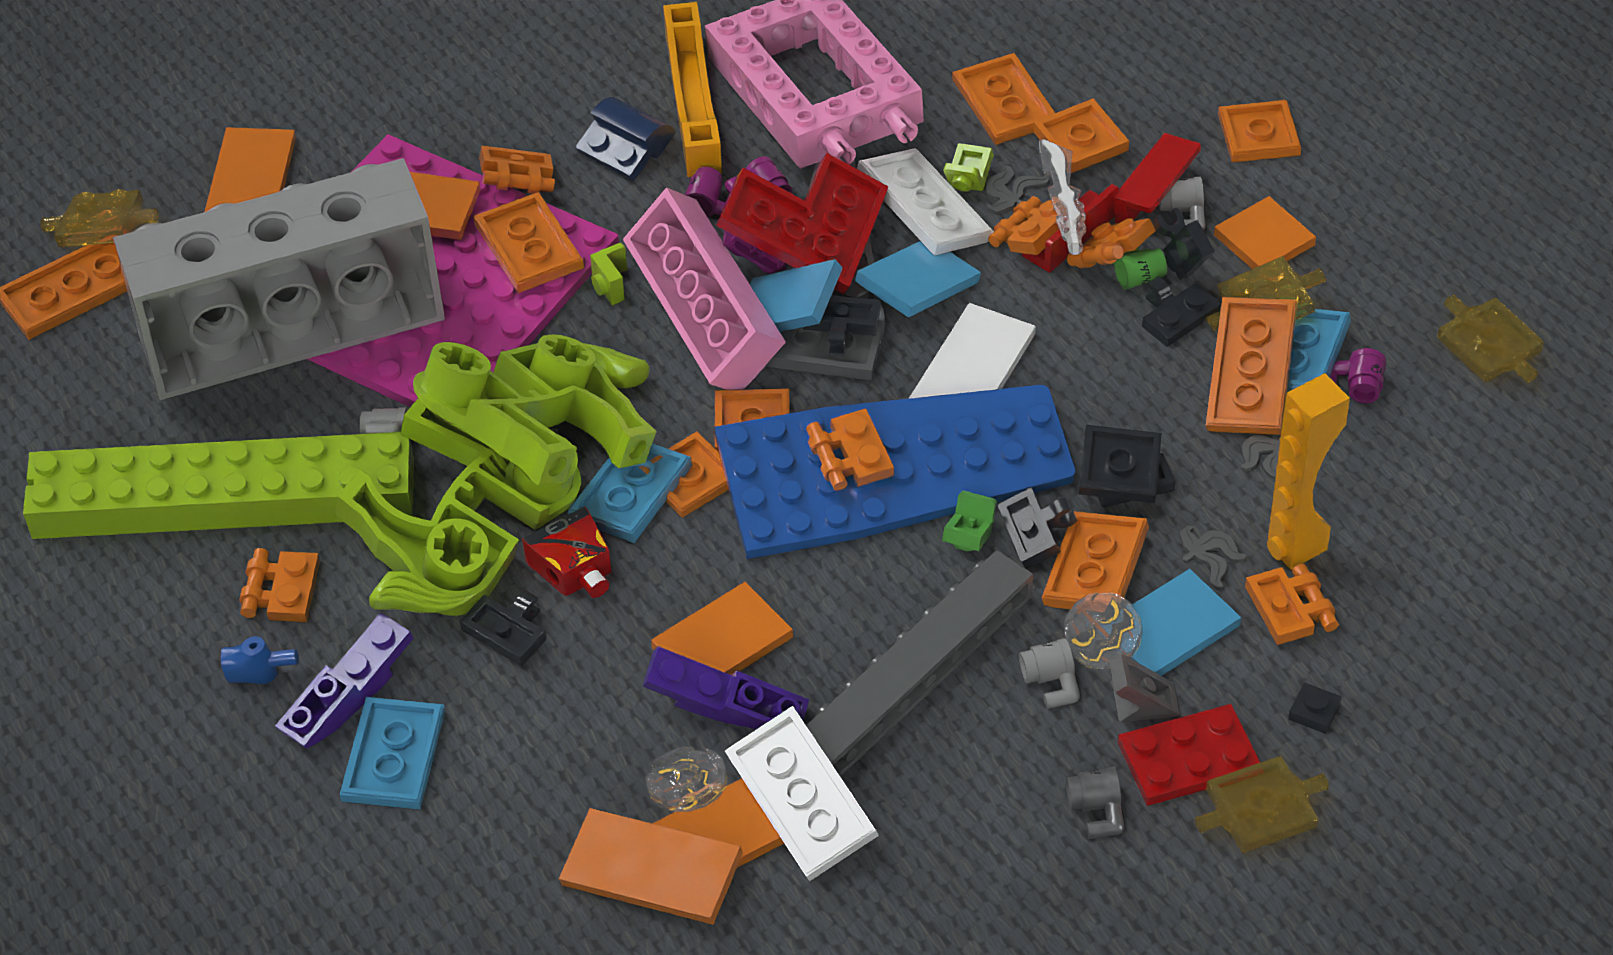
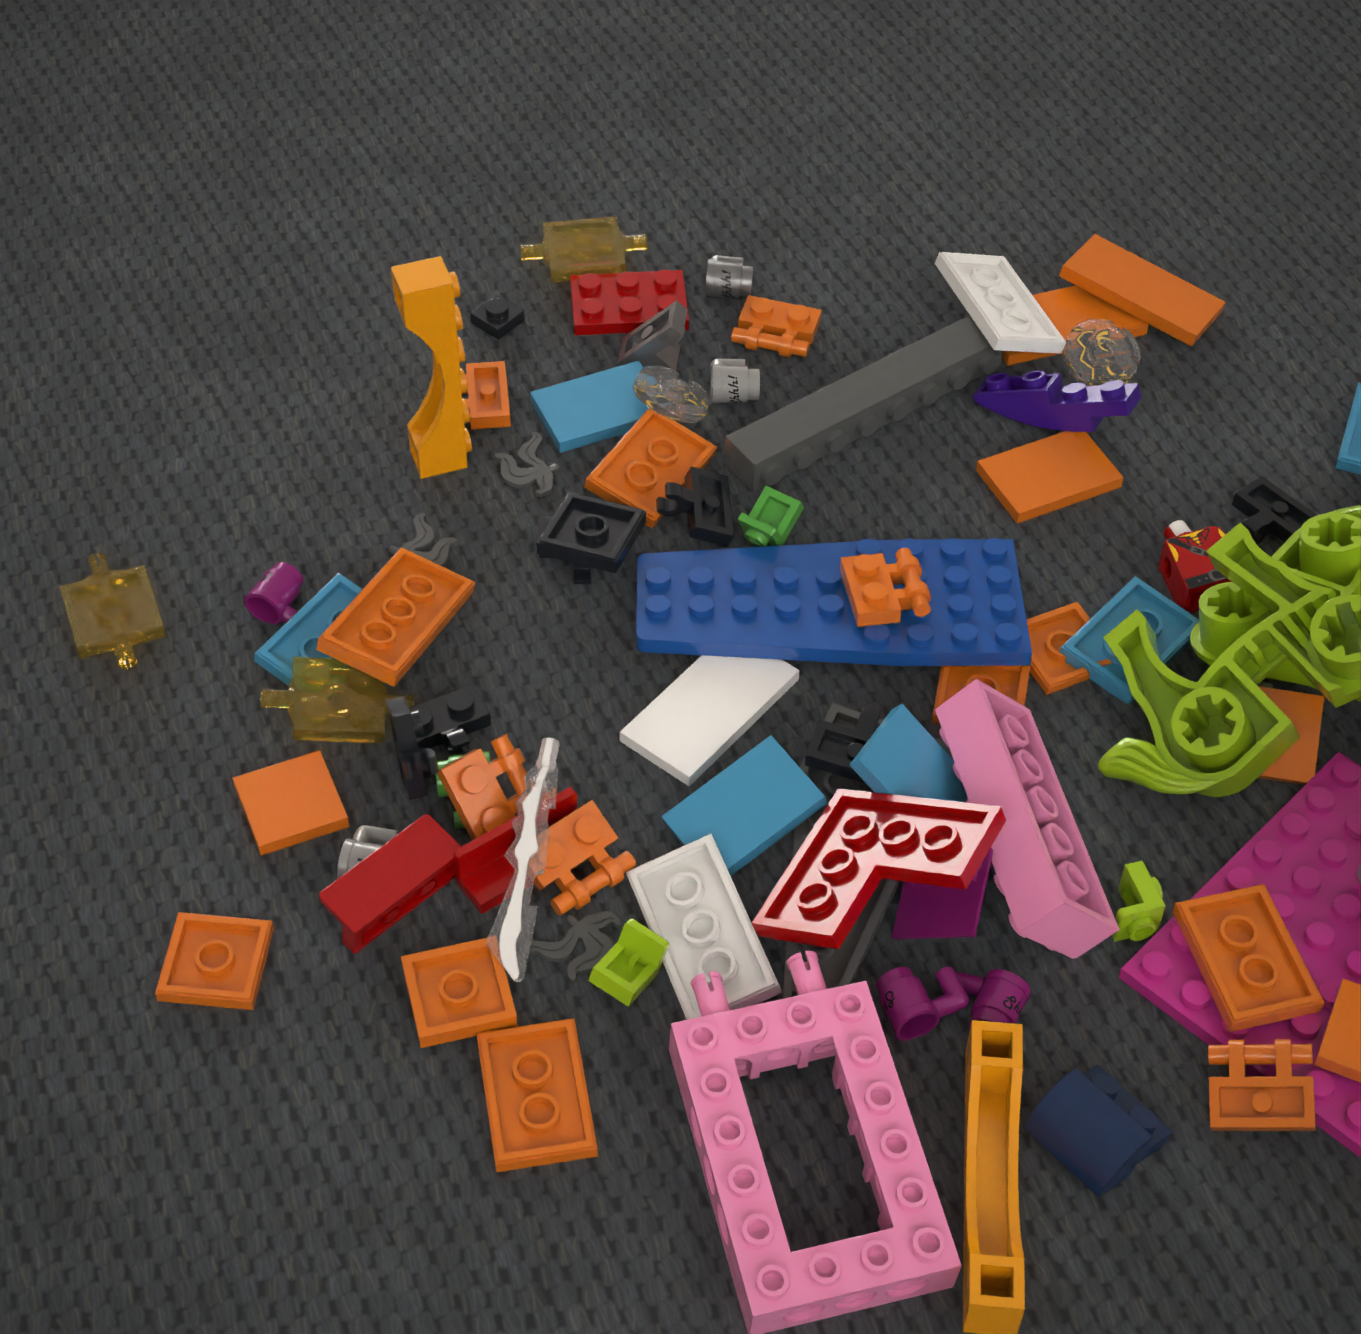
camera: 170 degrees left, 0 degrees up
(1027, 764) = (776, 326): none -> orange plate

